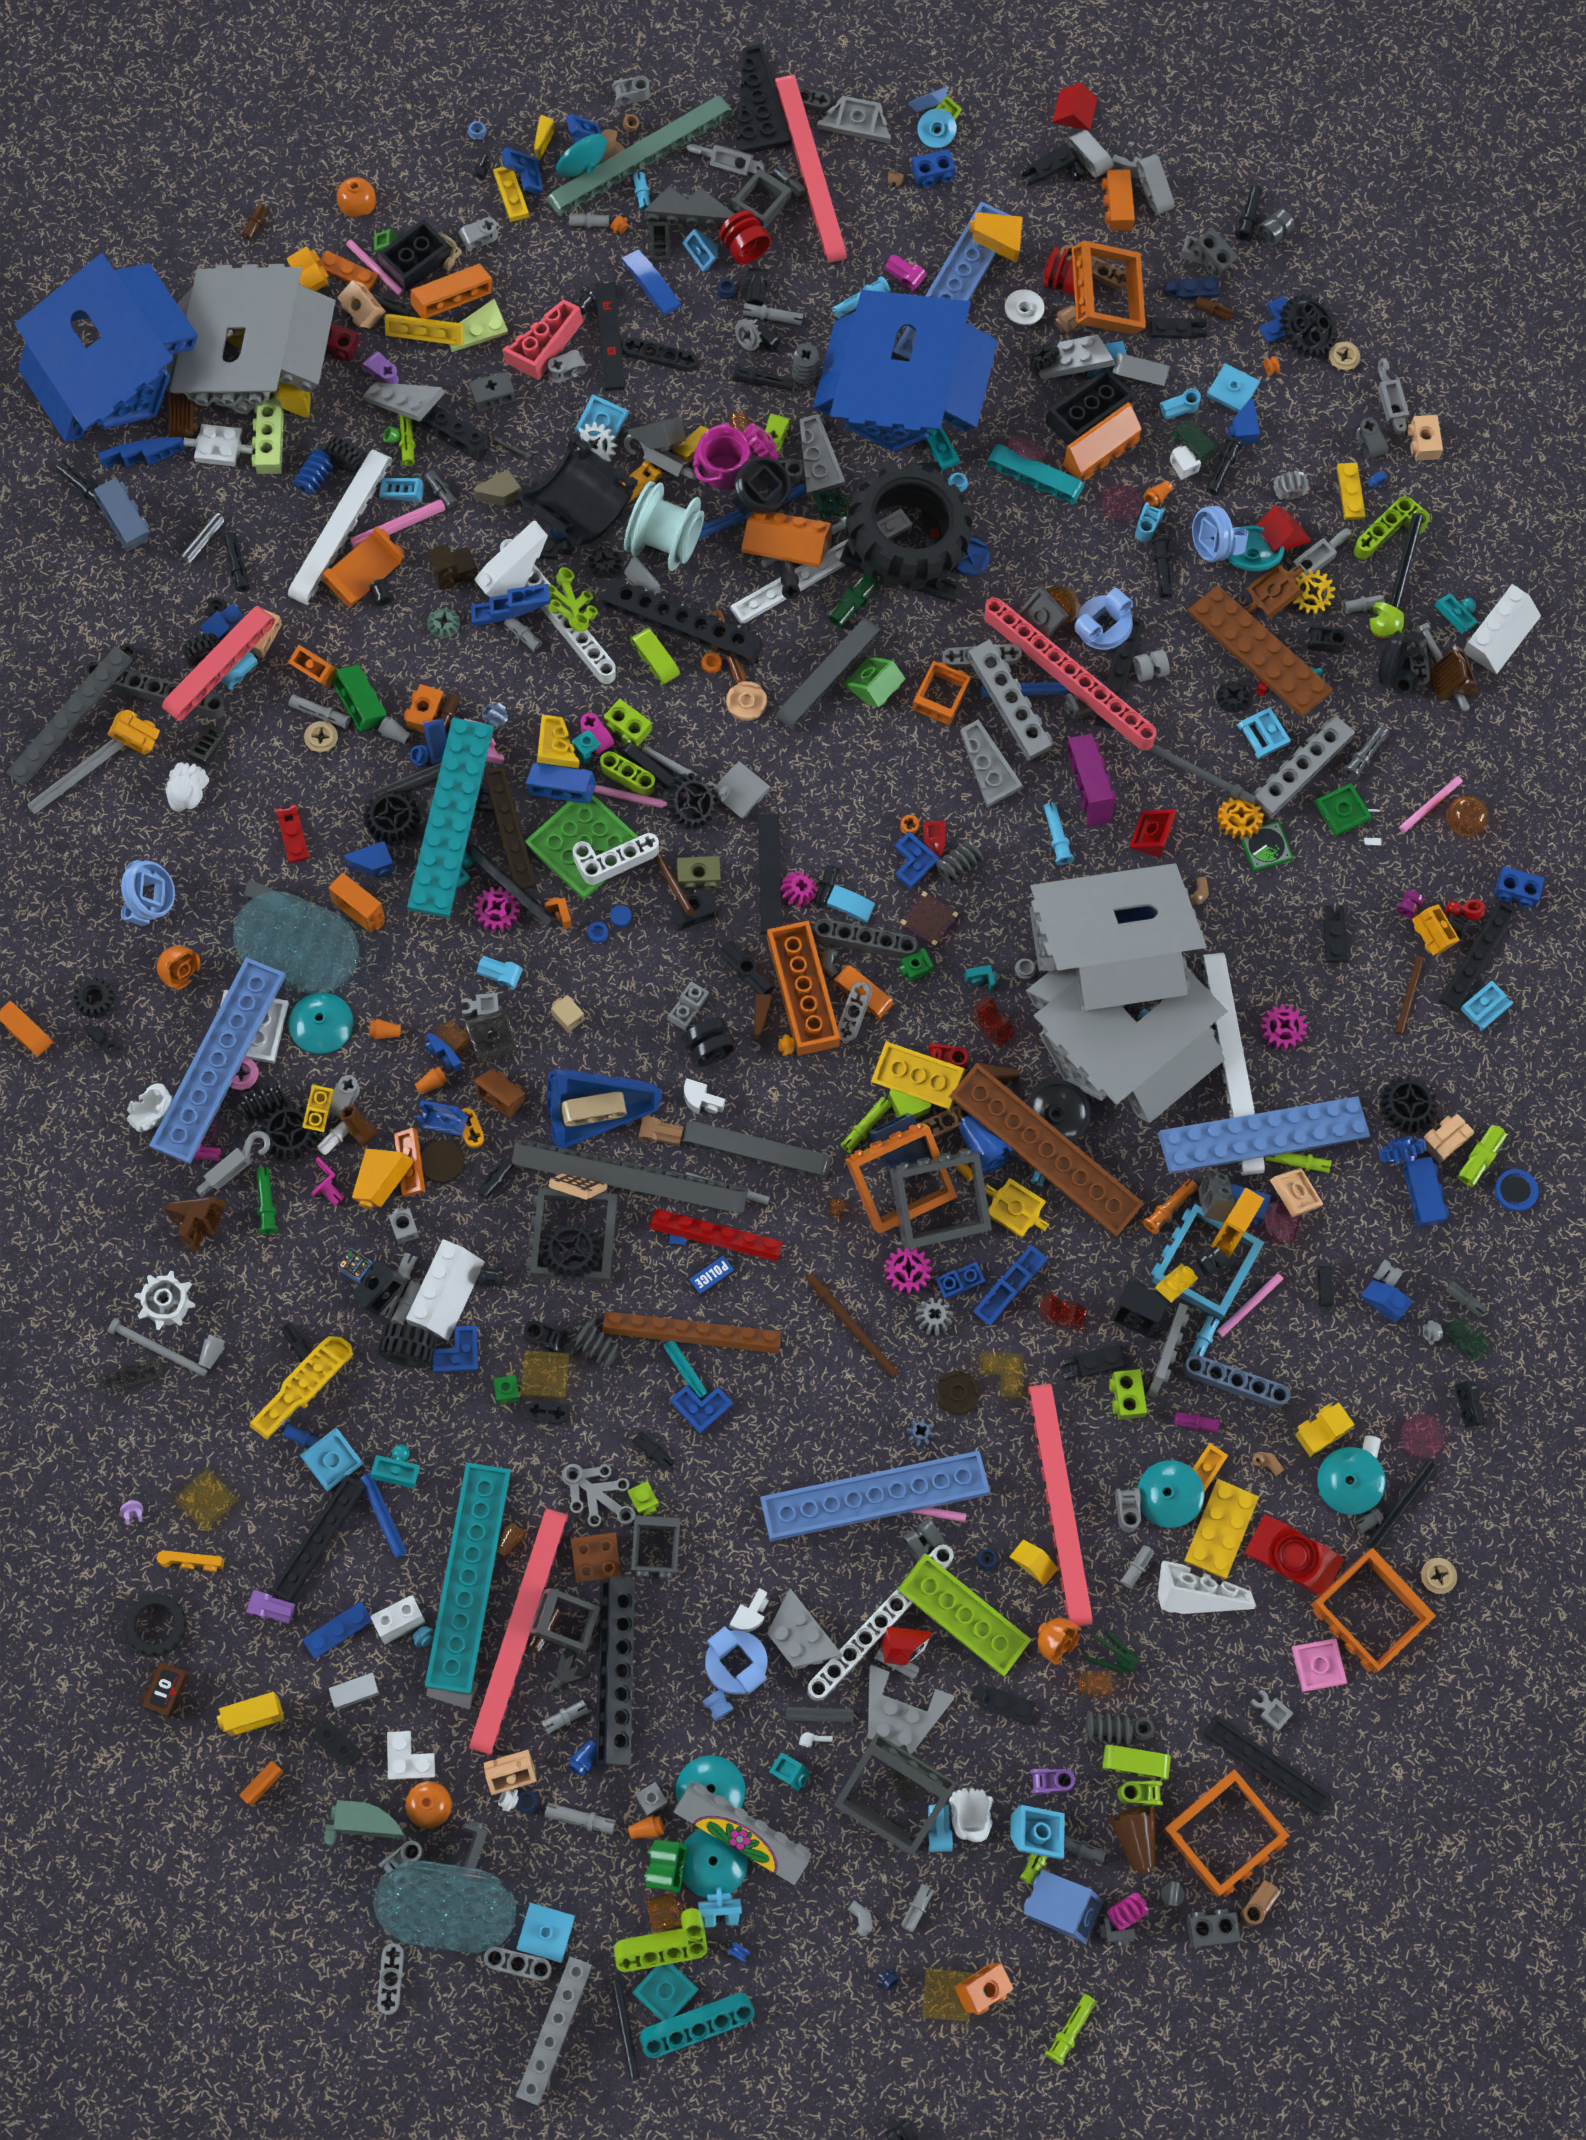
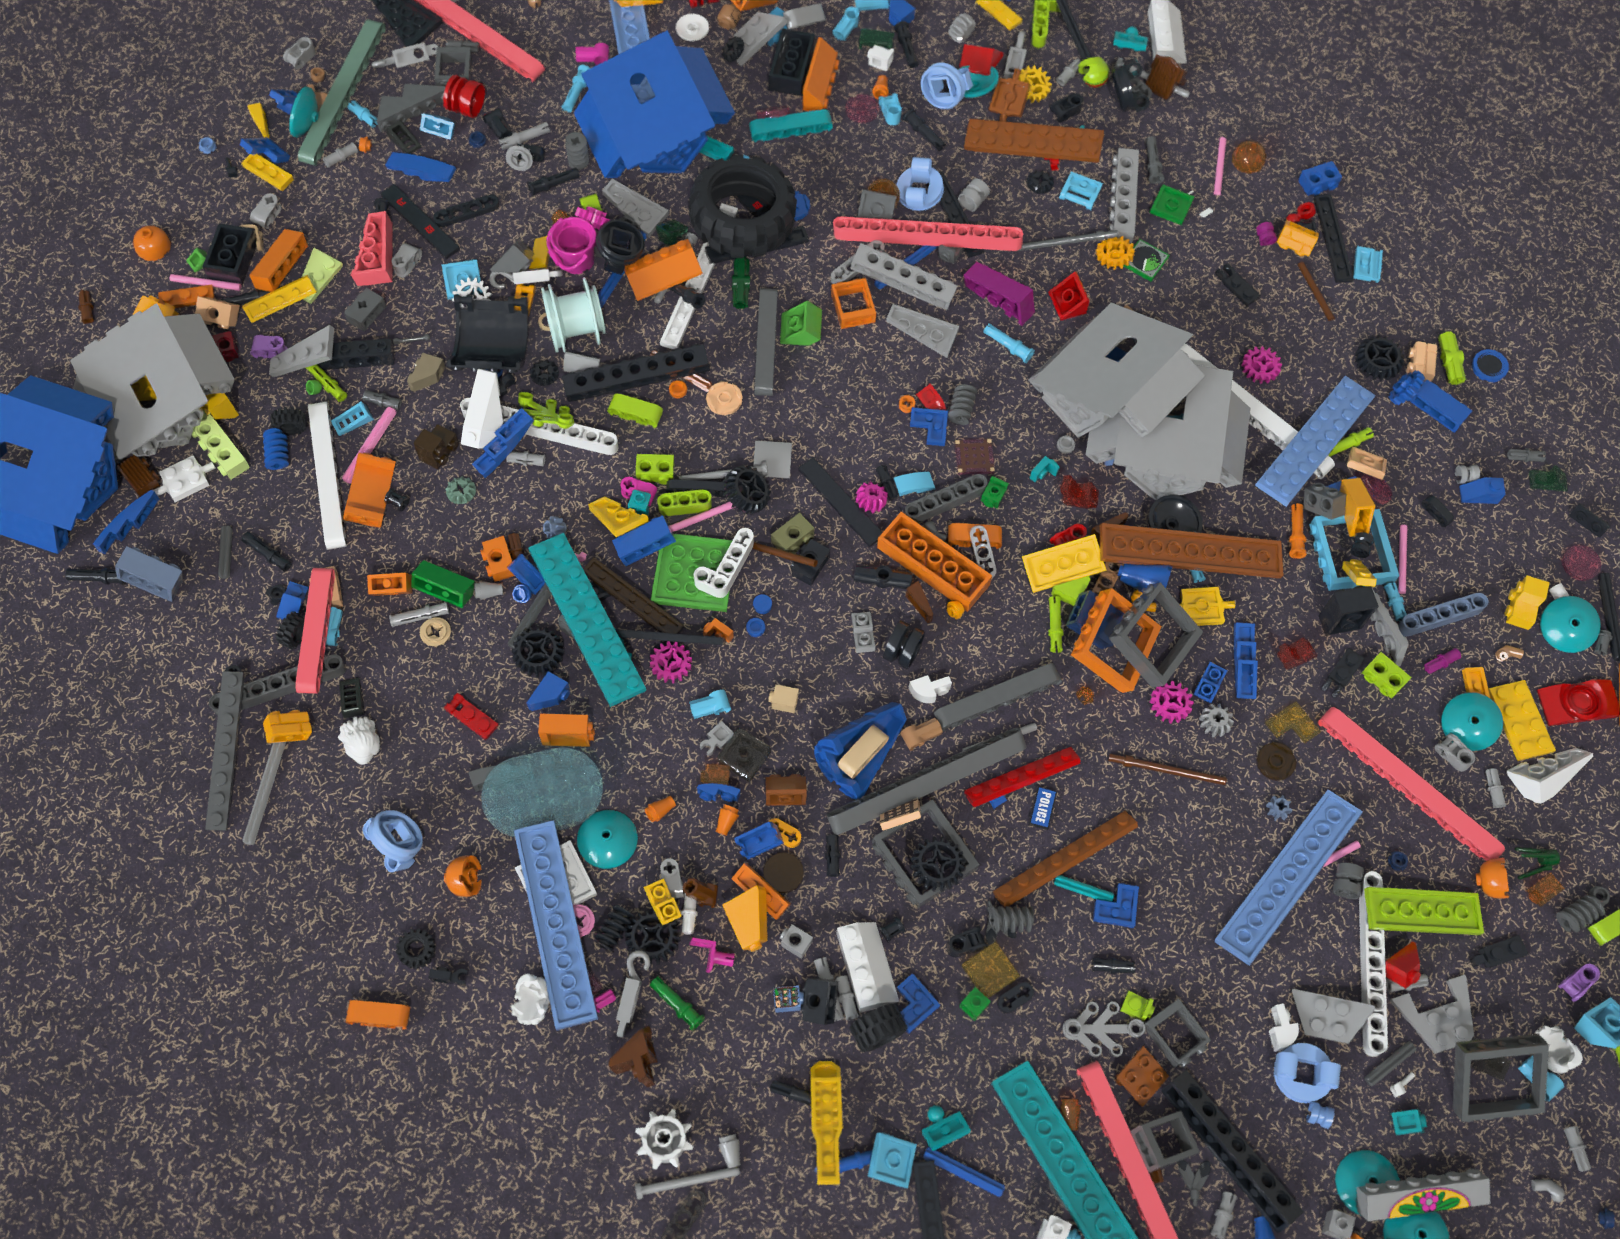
camera: 35 degrees left, 5 degrees down
(1034, 1561) = (1428, 837): yellow slope -> none
(1432, 1332) = (1527, 487): light grey plate -> none

